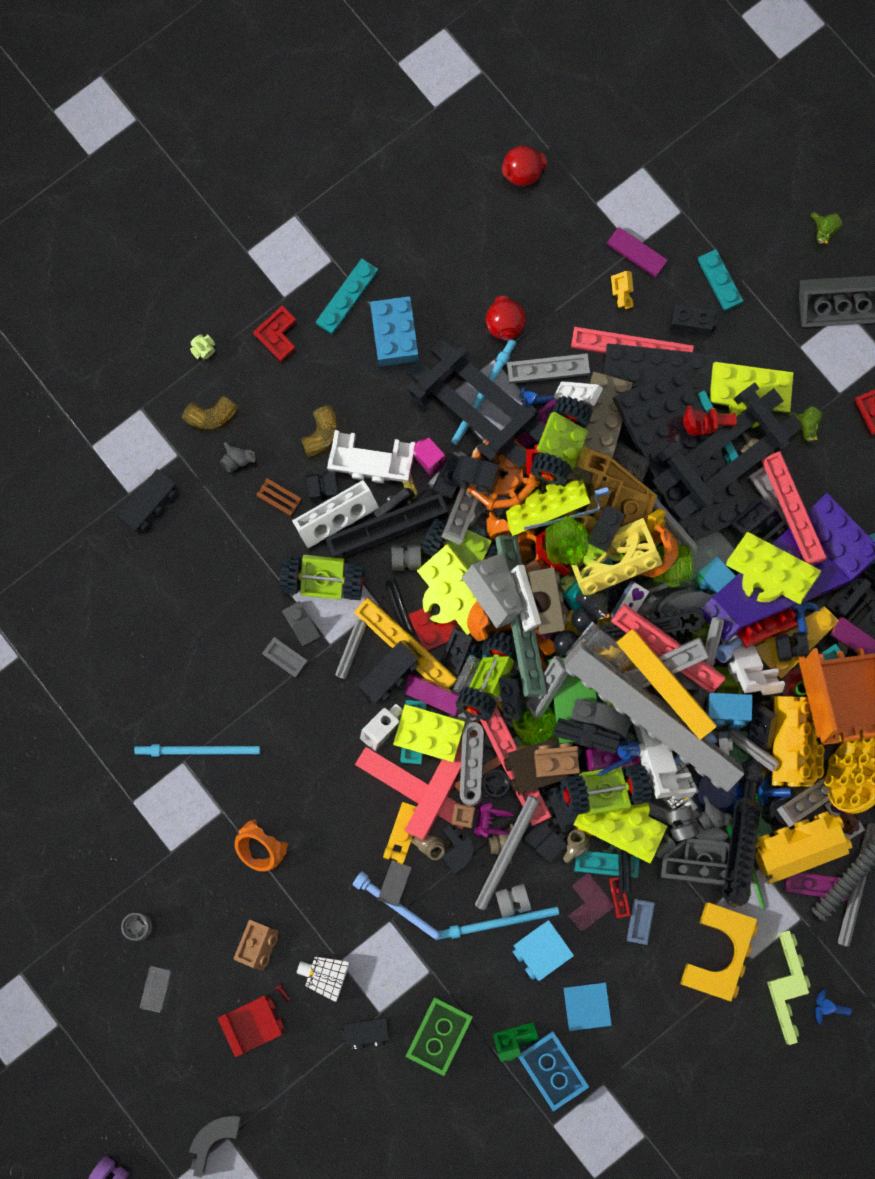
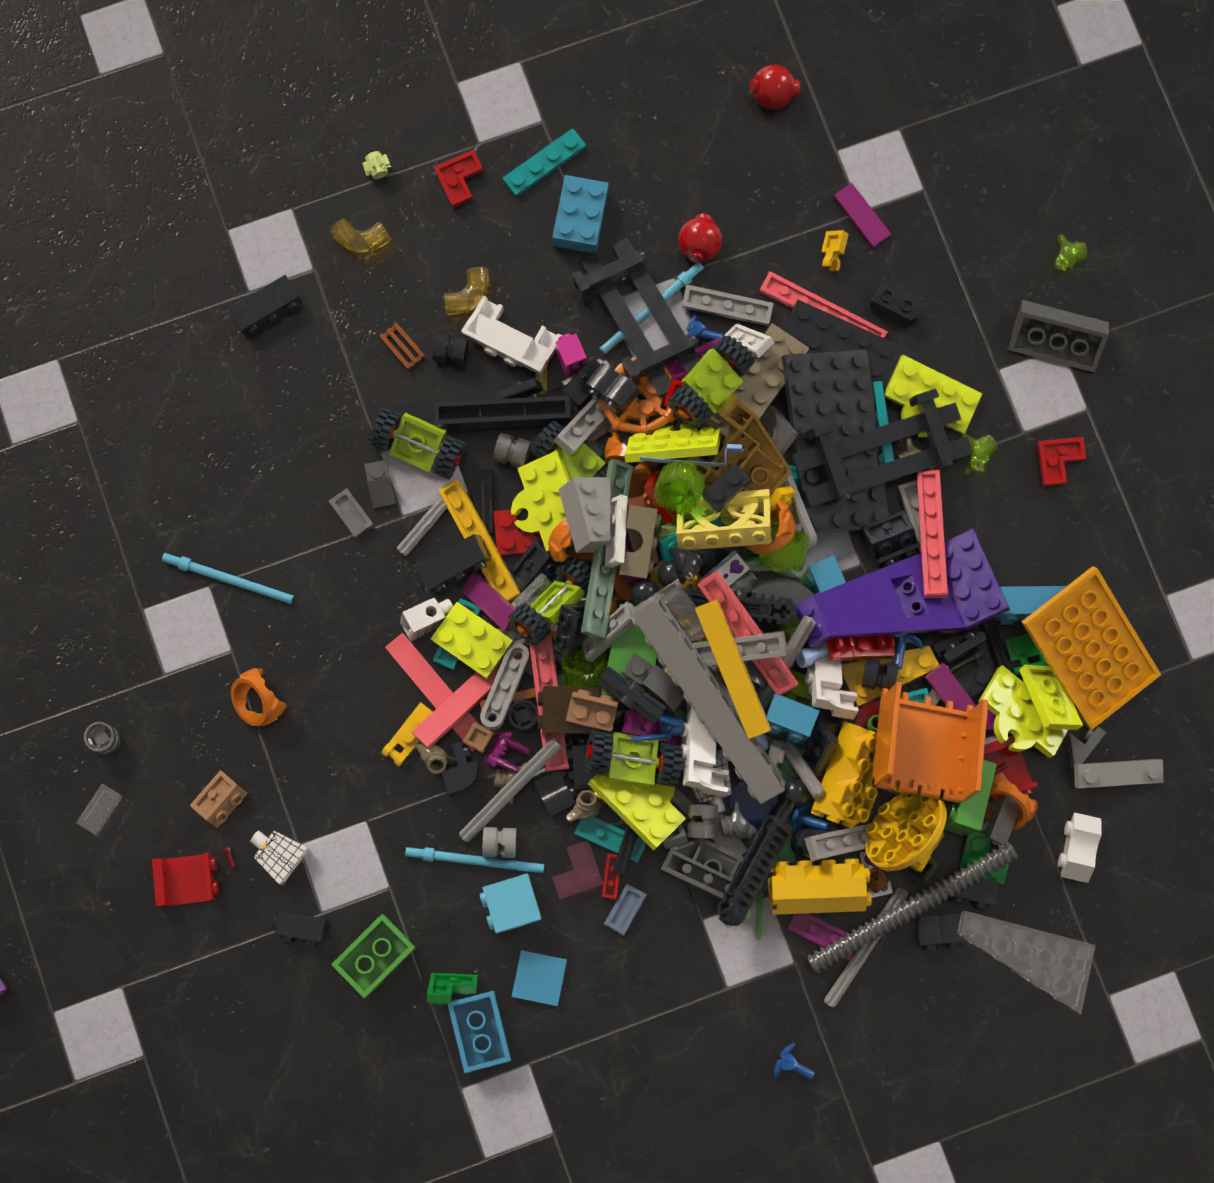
camera: 10 degrees right, 0 degrees up
(222, 1127) = (101, 977): dark grey arch -> none
(236, 458) = (372, 291): dark grey animal -> none
(335, 514) = (443, 378): white brick -> none
(363, 882) = (351, 771): light blue piece -> none
(394, 883) = (383, 783): flat silver tile -> none
(705, 423) = (868, 414): red piece -> none
(720, 280) = (939, 273): teal plate -> none
(740, 930) = (725, 952): yellow arch -> none
(771, 570) = (885, 589): neon yellow plate -> none
(789, 987) = (756, 1029): yellowish green bracket -> none

